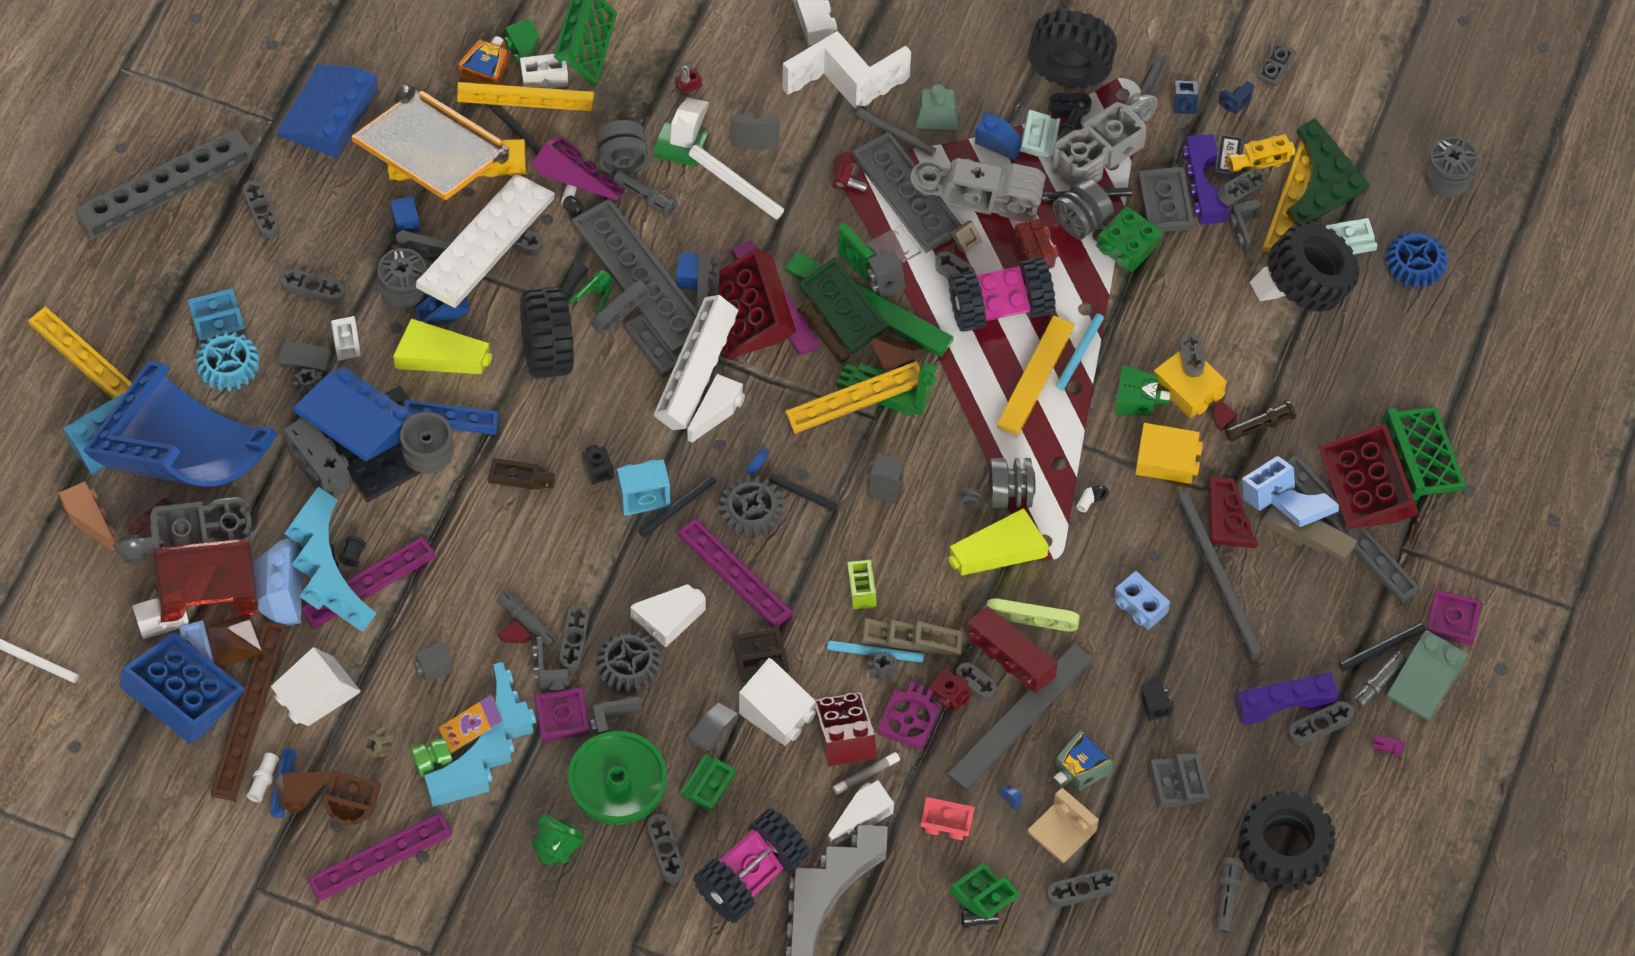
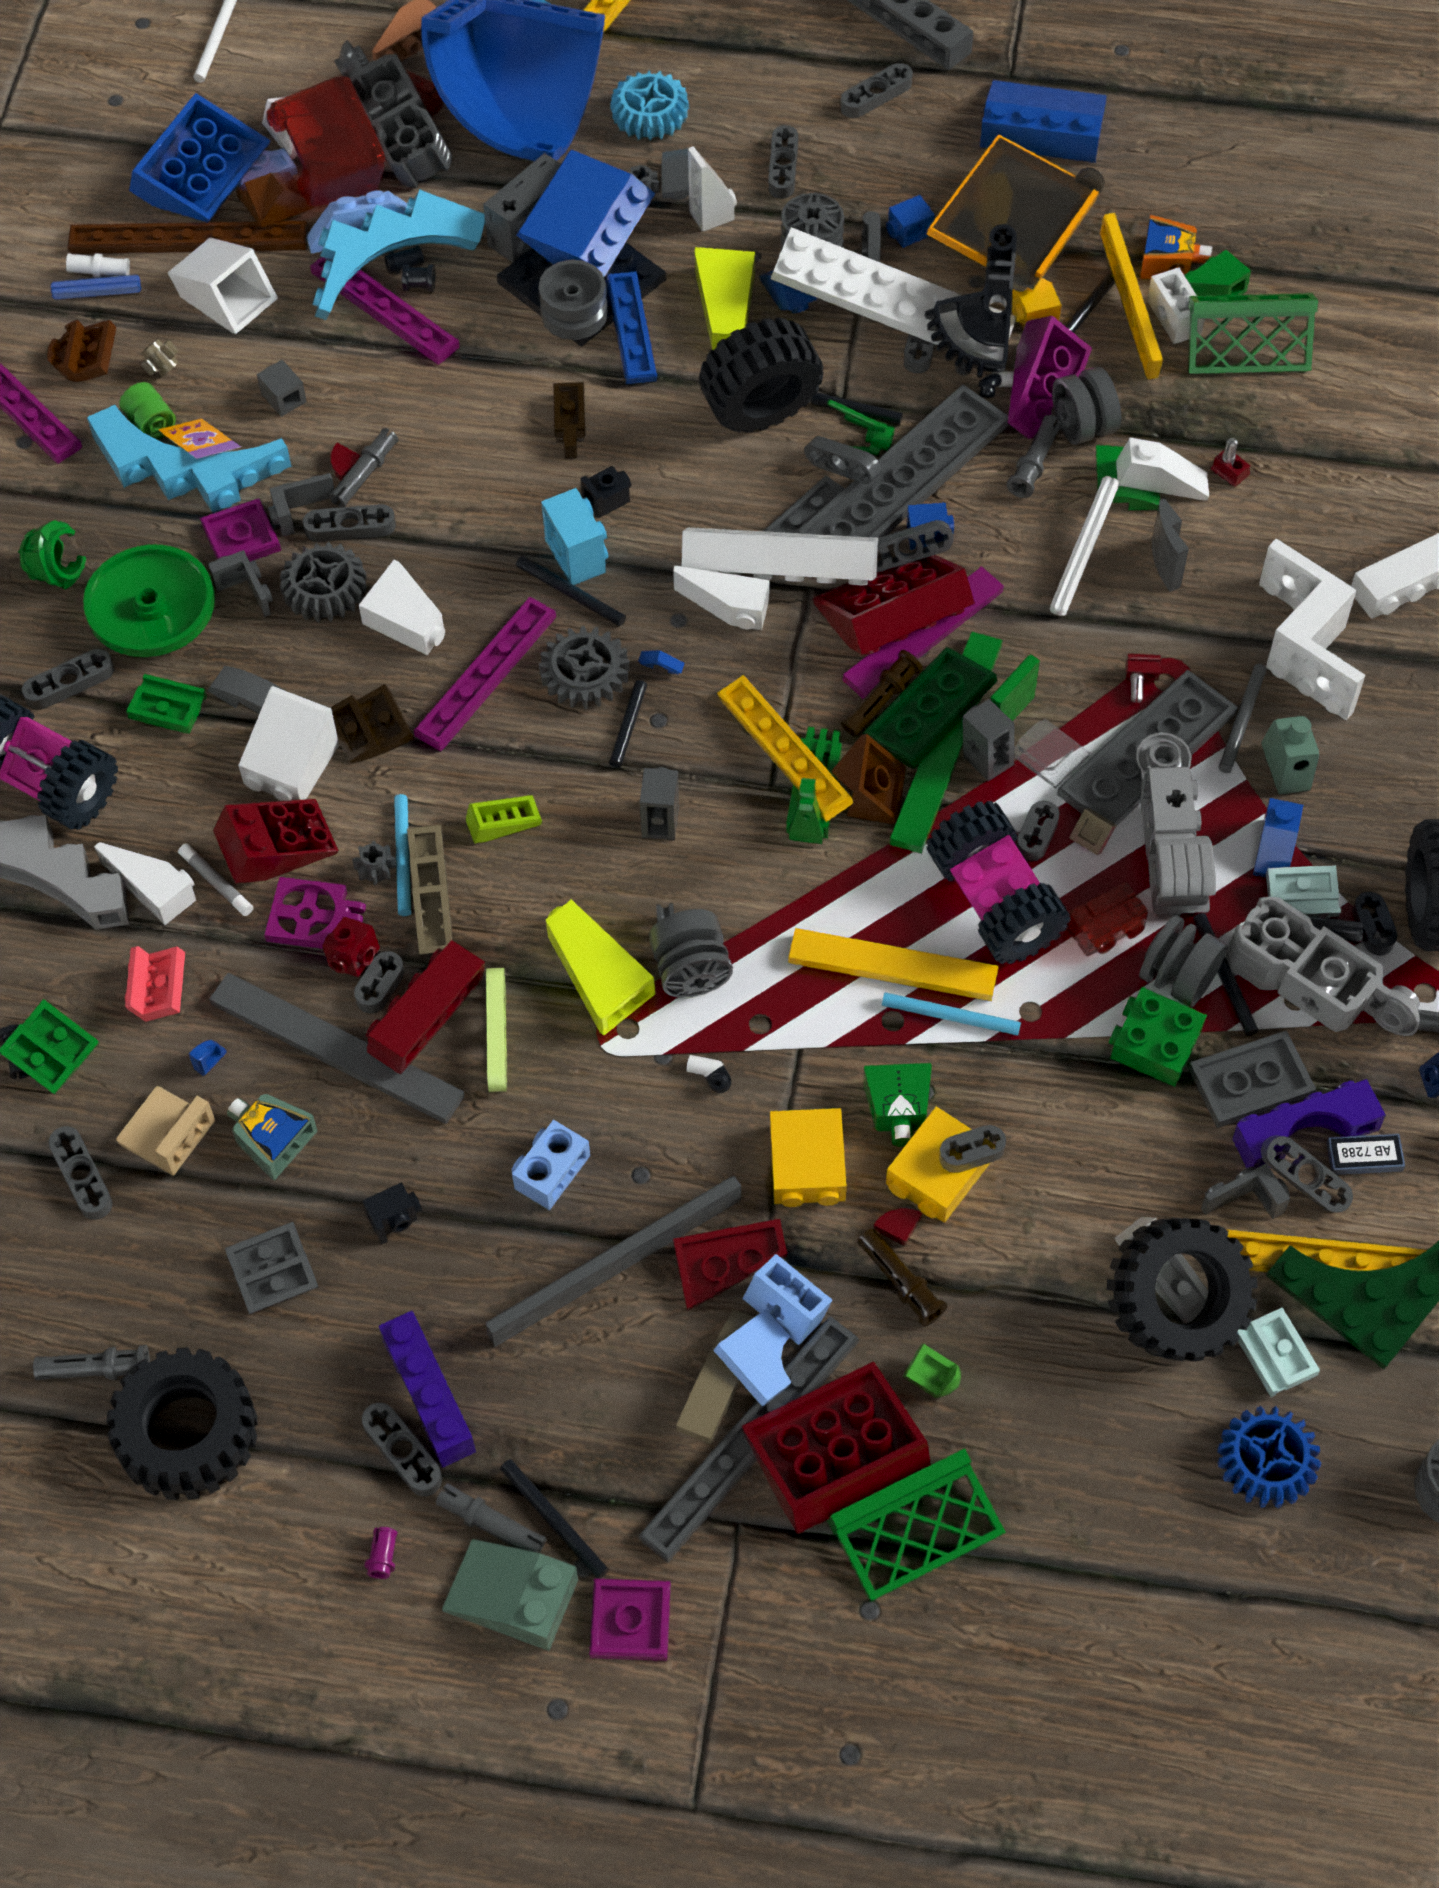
camera: 80 degrees right, 0 degrees up
(216, 314) = (715, 84): dark azure slope -> none
(298, 789) = (77, 294): reddish brown slope -> none
(510, 161) = (974, 310): none -> black arm
(1262, 153) = (1387, 1196): yellow brick -> none
(1330, 417) = (933, 1372): none -> bright green plate

